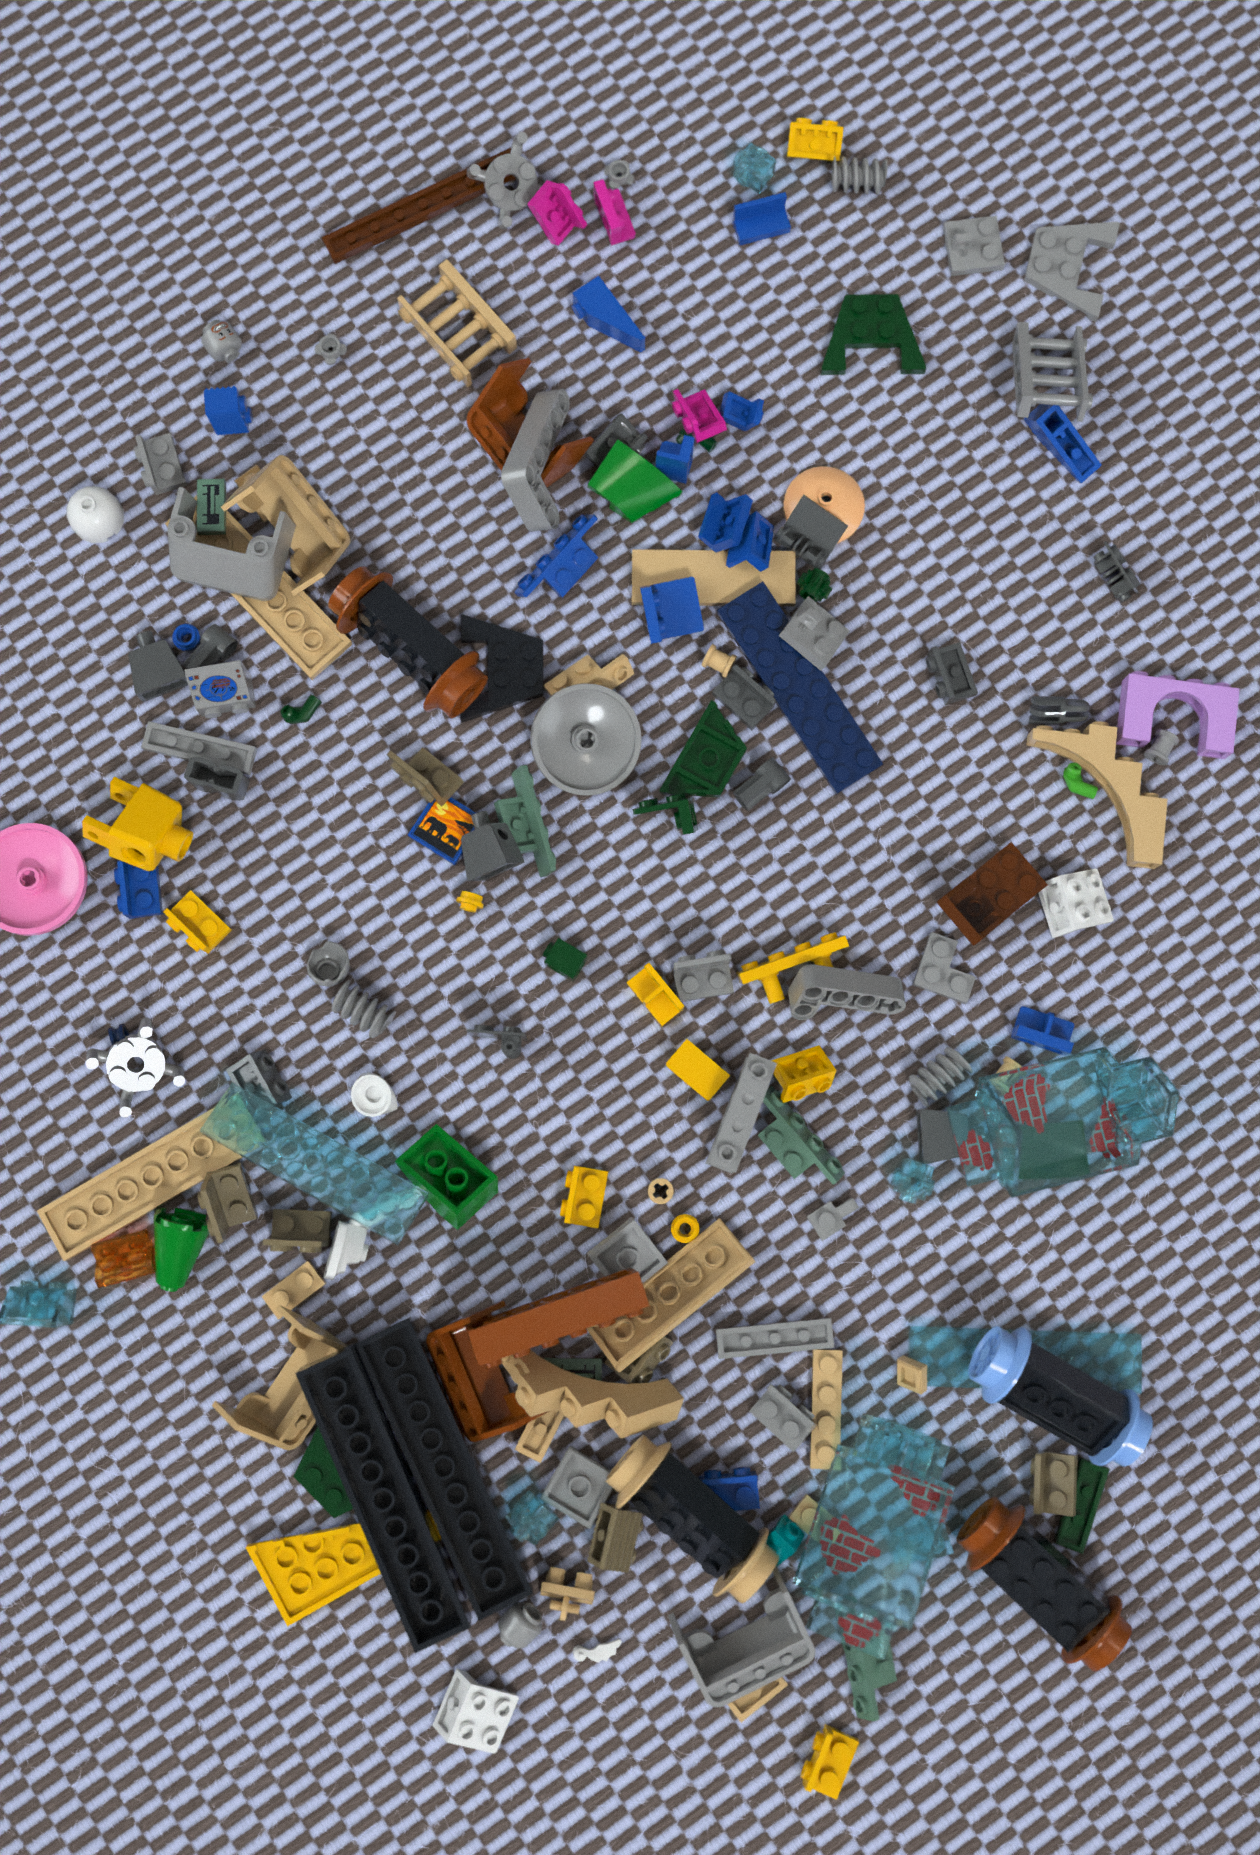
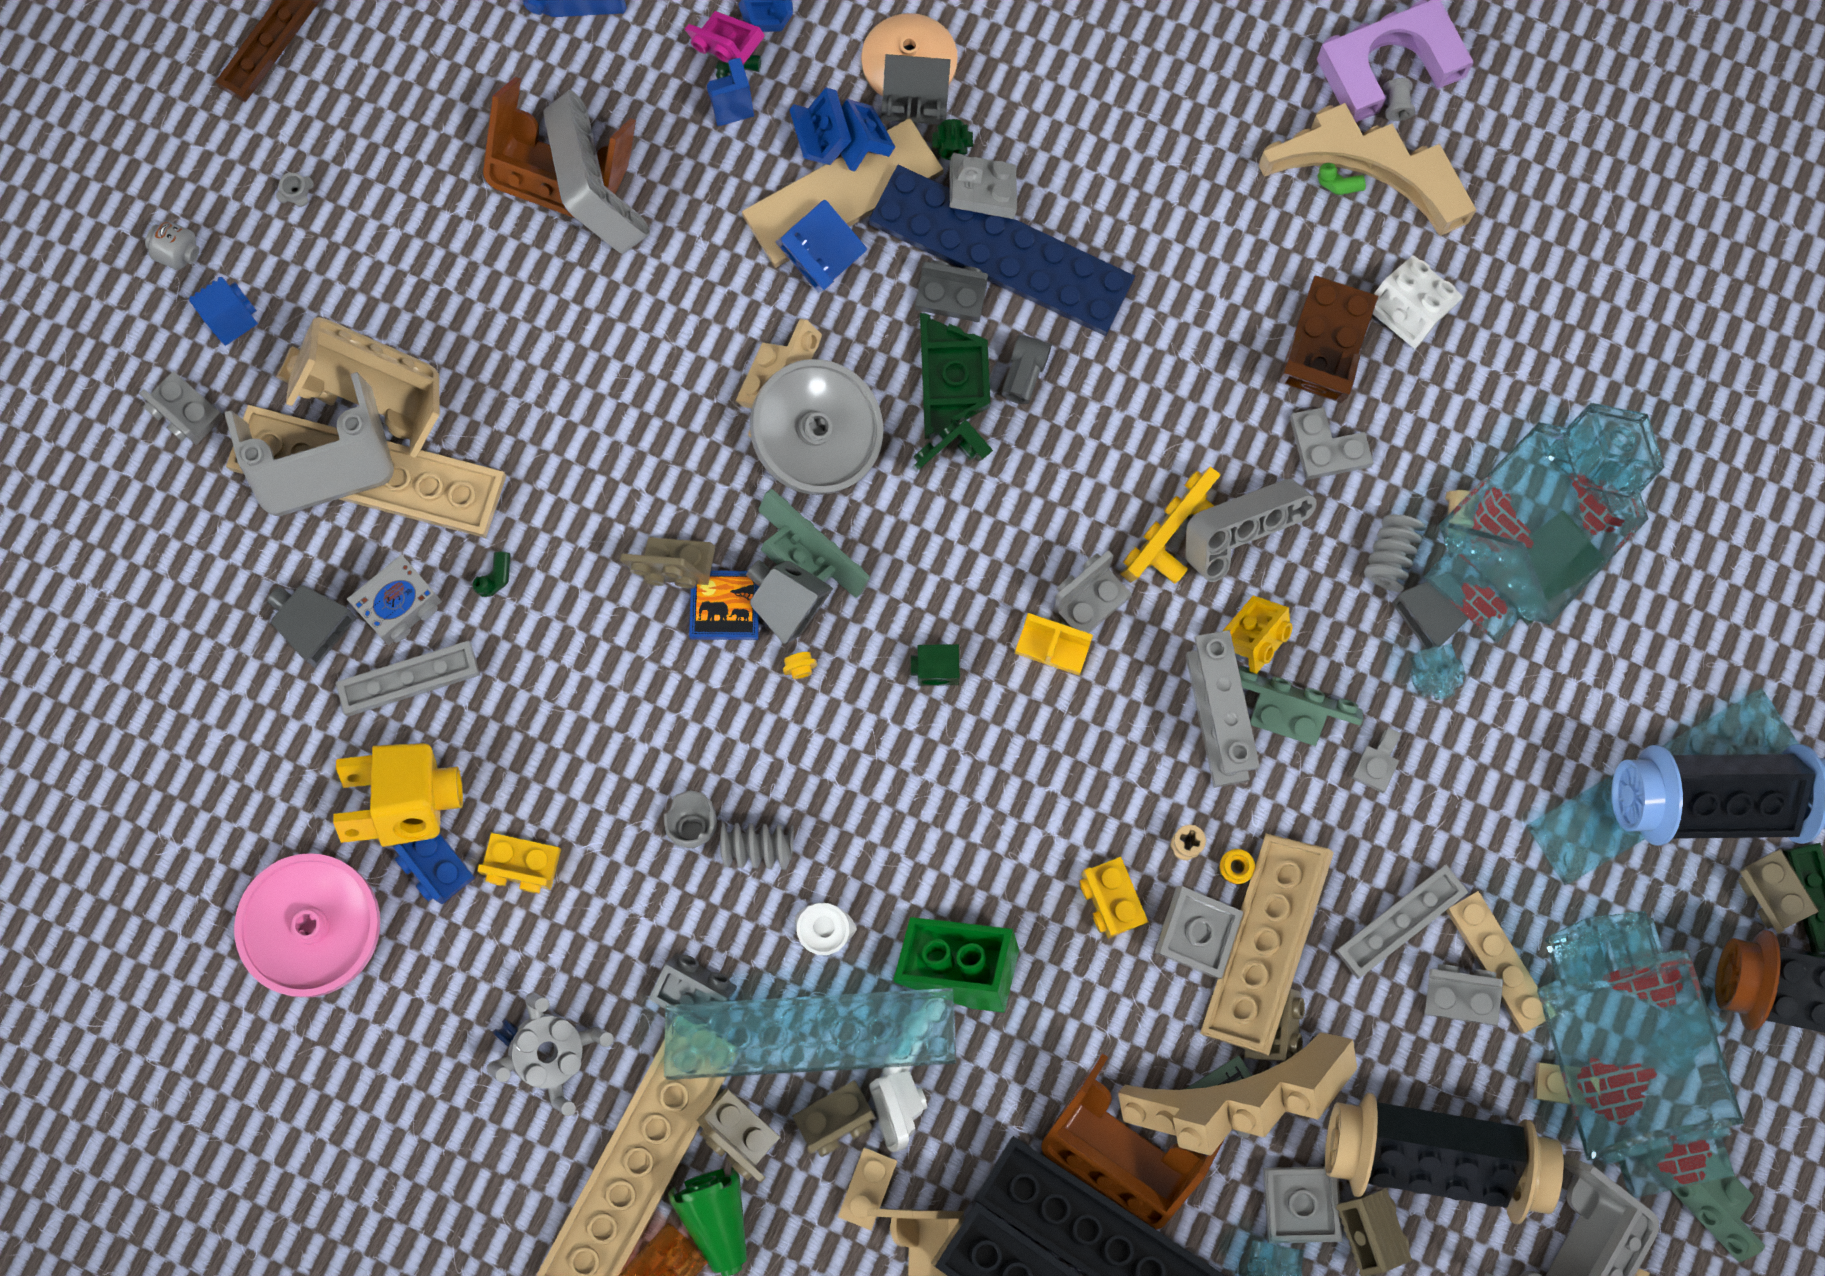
camera: 30 degrees left, 5 degrees down
(95, 514) = (141, 501): white cylinder -> none
(183, 630) = (313, 567): blue plate -> none
(210, 498) = (267, 418): sand green tile -> none
(211, 778) = (439, 700): dark grey brick -> none
(214, 646) = (358, 564): dark grey piece -> none
(408, 639) = (567, 432): brick -> none
(467, 299) = (412, 58): tan fence -> none
(510, 1036) = (933, 777): dark grey hinge -> none
(513, 667) = (691, 400): black wing -> none
(539, 1434) = (1225, 1176): tan plate -> none
(557, 1316) = (1169, 1034): dark orange brick -> none
(564, 563) = (679, 264): blue bracket -> none
(620, 430) = (659, 118): dark grey bracket -> none
(631, 483) = (700, 144): green slope -> none
(697, 1070) = (1147, 693): yellow panel -> none
(719, 660) = (902, 270): tan bush -> none
(735, 1488) = (1464, 1098): blue bracket -> none
(785, 1538) = (1548, 1118): teal bracket -> none
(912, 1374) = (1564, 870): tan tile -> none
(951, 673) = (1145, 147): dark grey bracket -> none
(1043, 1031) = (1466, 446): blue panel -> none
(1057, 710) = (1273, 122): dark grey arm -> none

